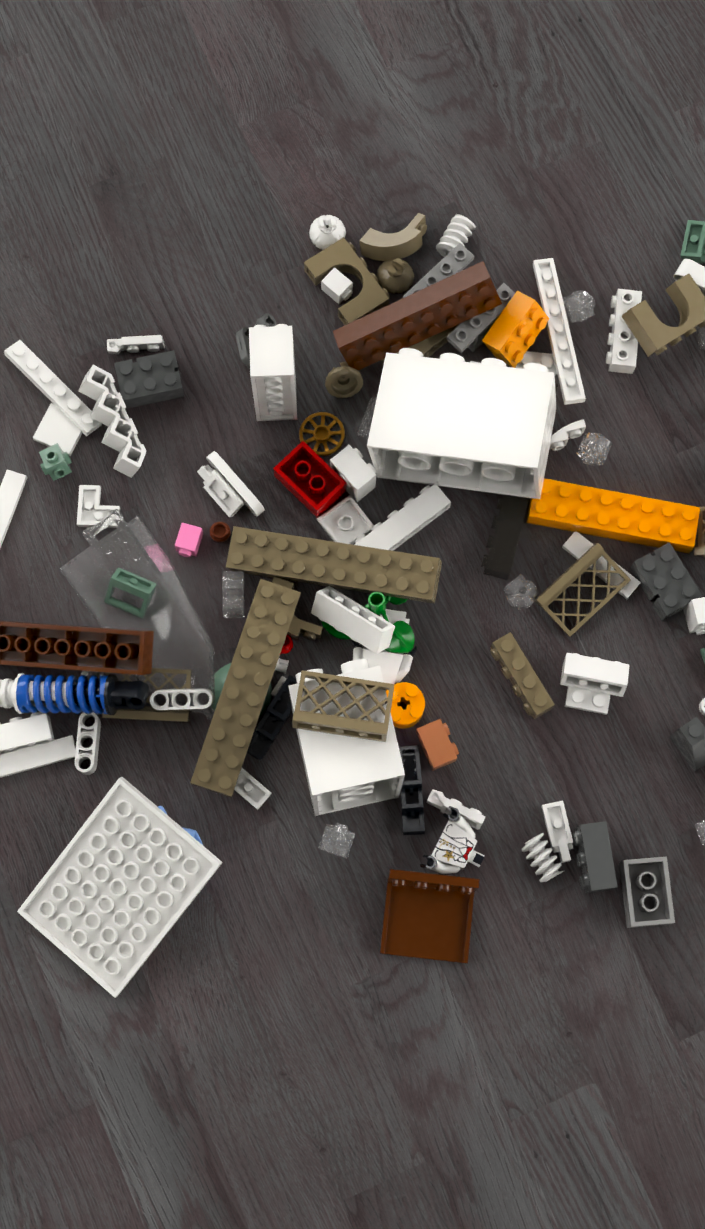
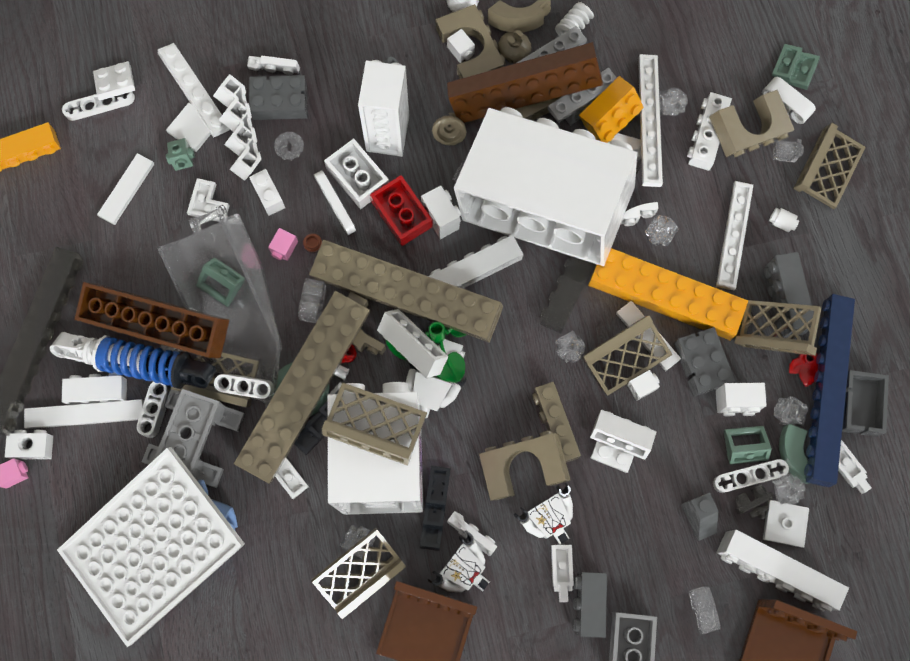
camera: 10 degrees right, 0 degrees up
(137, 738) = (199, 415): none -> light grey piece
(159, 486) = (267, 192): none -> white brick
(163, 427) = (282, 141): none -> clear gear
(221, 490) = (320, 206): white hinge -> none
(252, 447) = (355, 172): none -> white brick
(322, 433) = (422, 173): pearl gold wheel -> none
(345, 522) = (426, 254): white tile -> none
(354, 886) = (366, 587): none -> fence
(410, 695) = (435, 421): light orange brick -> none
(437, 744) = (466, 471): nougat brick -> none
(467, 728) = (497, 463): none -> dark tan arch
(534, 775) = (550, 516): none -> white torso
(541, 858) = (542, 595): white piece -> none
(606, 618) = (643, 385): none -> white brick
(672, 439) = (734, 235): none -> white tile

